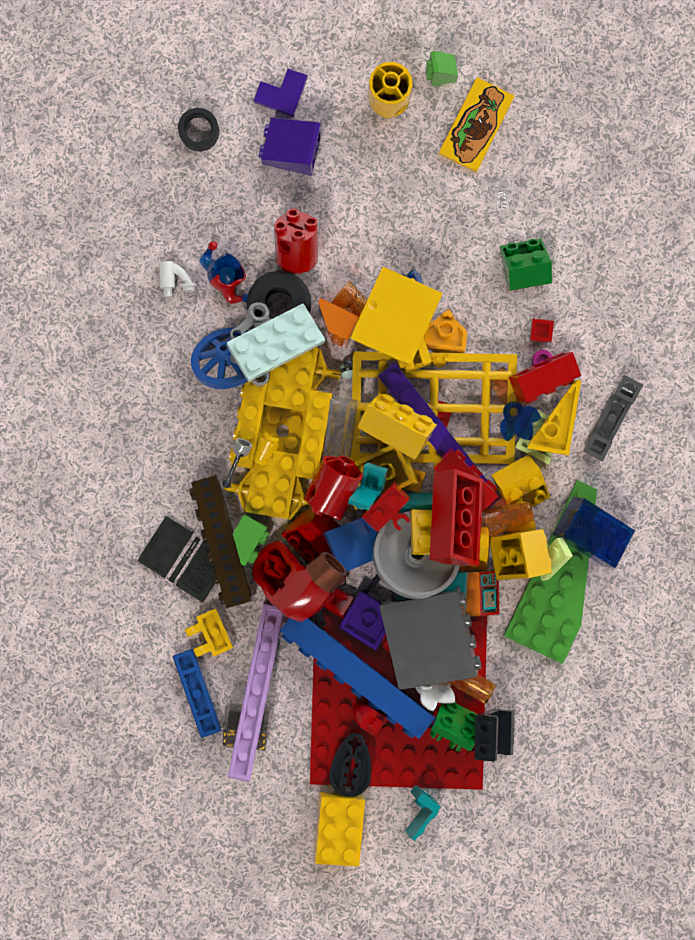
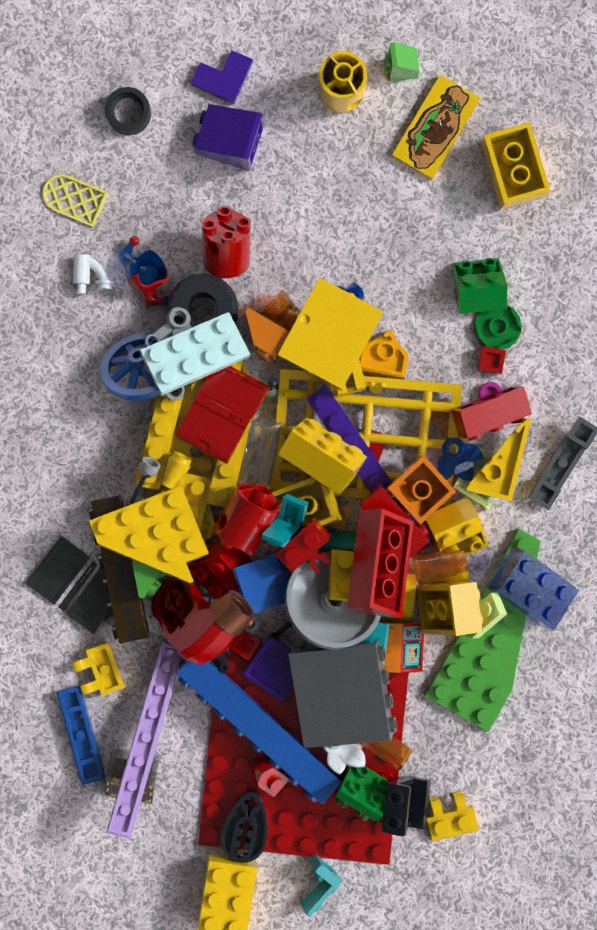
camera: 10 degrees right, 0 degrees up
(178, 219) = (83, 202): none -> light yellow window
(251, 506) = (154, 533): none -> yellow wing
(304, 394) = (222, 412): none -> red piece
(487, 449) = (421, 489): none -> orange slope
(536, 747) = (452, 822): none -> yellow plate
(545, 306) = (493, 333): none -> green tile
(550, 154) = (515, 166): none -> yellow brick

